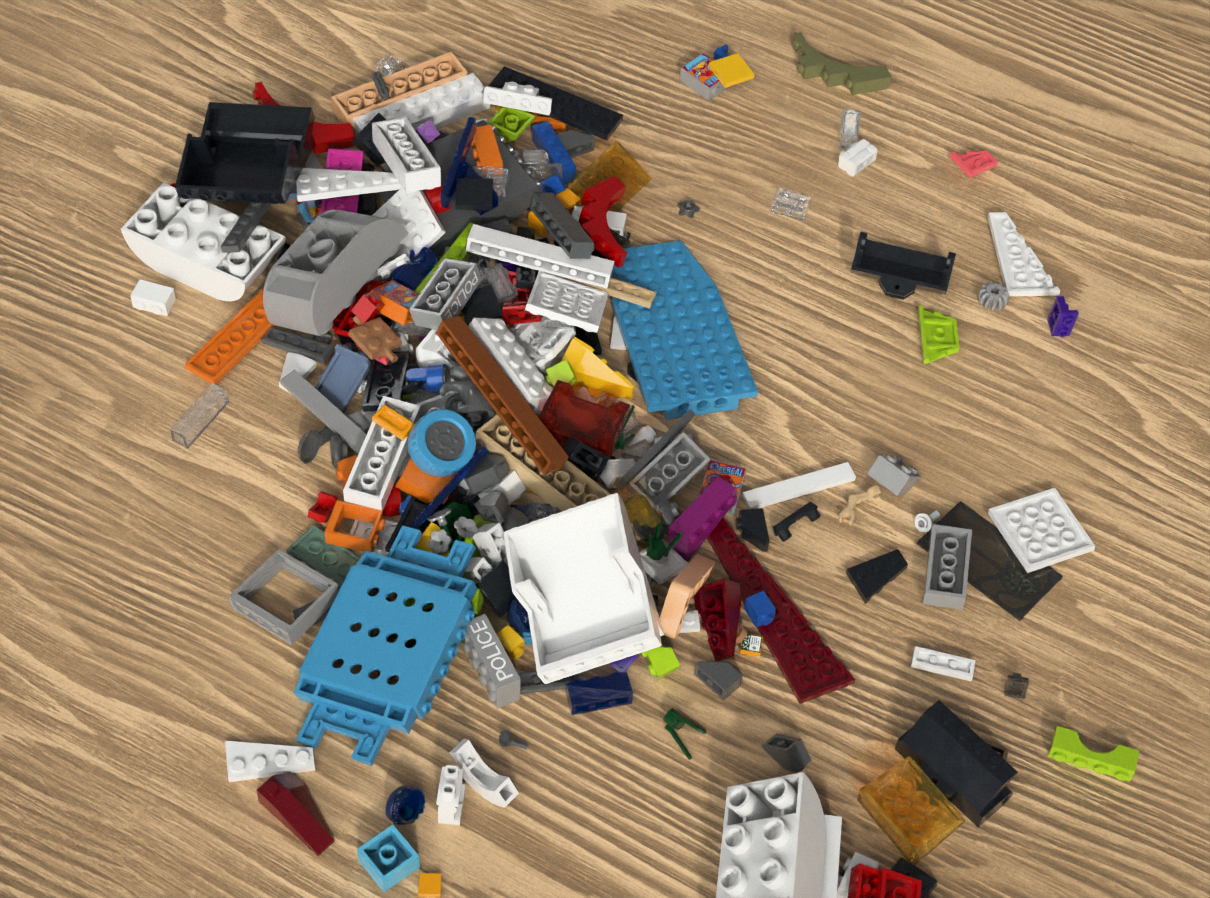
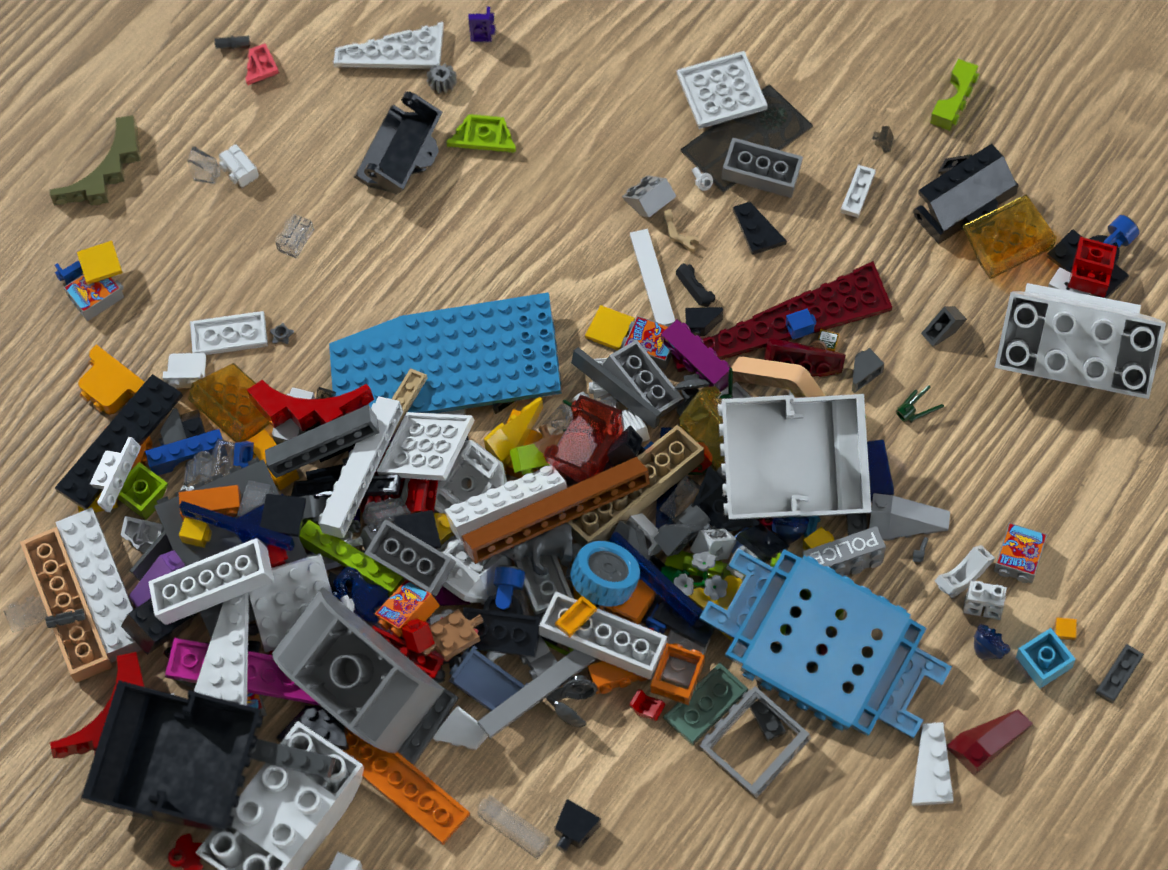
camera: 75 degrees left, 10 degrees up
(201, 461) = (575, 826): none -> black torso
(453, 142) = (195, 532): none -> yellow brick
(514, 834) = (1020, 553): none -> brick
(545, 720) = (903, 517): none -> light grey wedge
(581, 154) = (192, 423): none -> black slope
(619, 93) = (108, 382): none -> light orange brick
(639, 145) = (185, 369): none -> white bracket
(681, 172) = (229, 333): none -> white tile
(736, 451) = (609, 327): none -> yellow tile
(994, 140) = (231, 42): none -> dark grey axle

